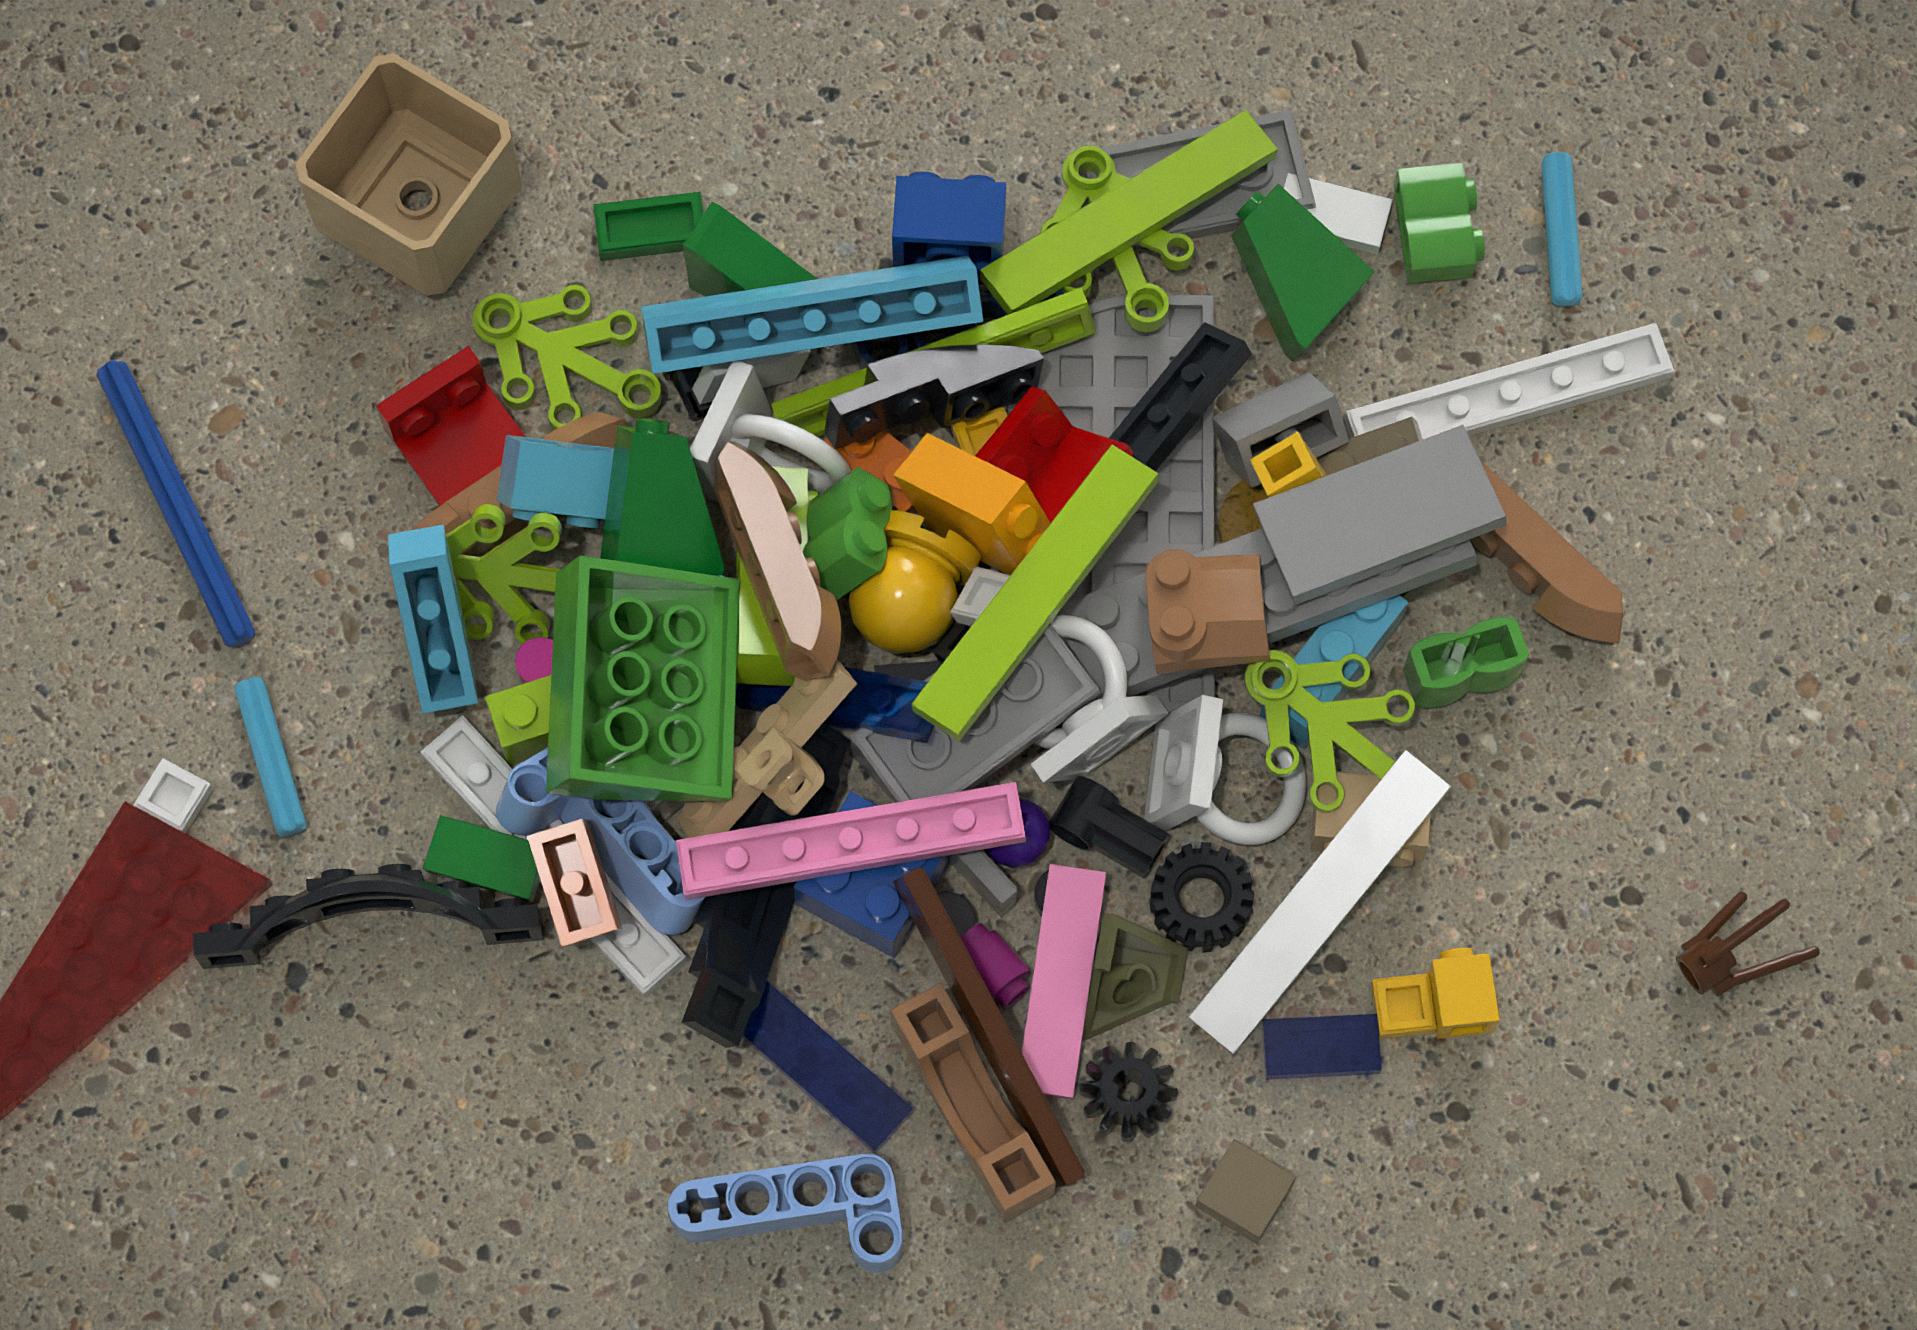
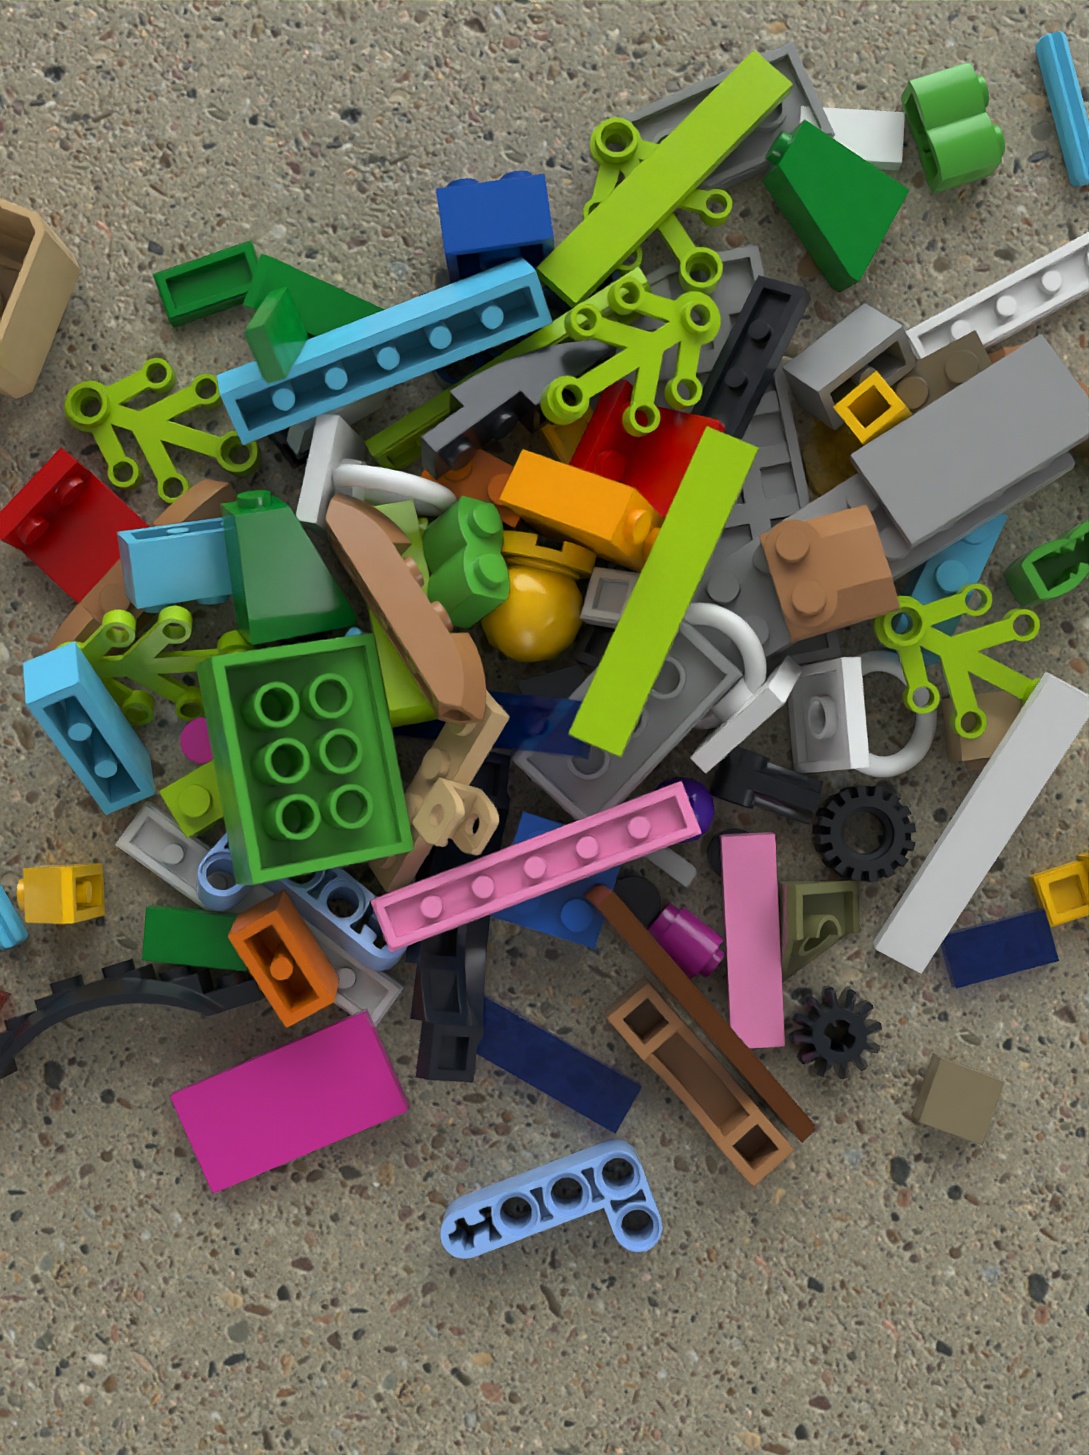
camera: 10 degrees left, 15 degrees up
(357, 781) = (62, 893): none -> yellow slope
(540, 1045) = (290, 1101): none -> dark pink tile
(711, 276) = (276, 335): none -> green tile
(1064, 365) = (641, 352): none -> lime plant

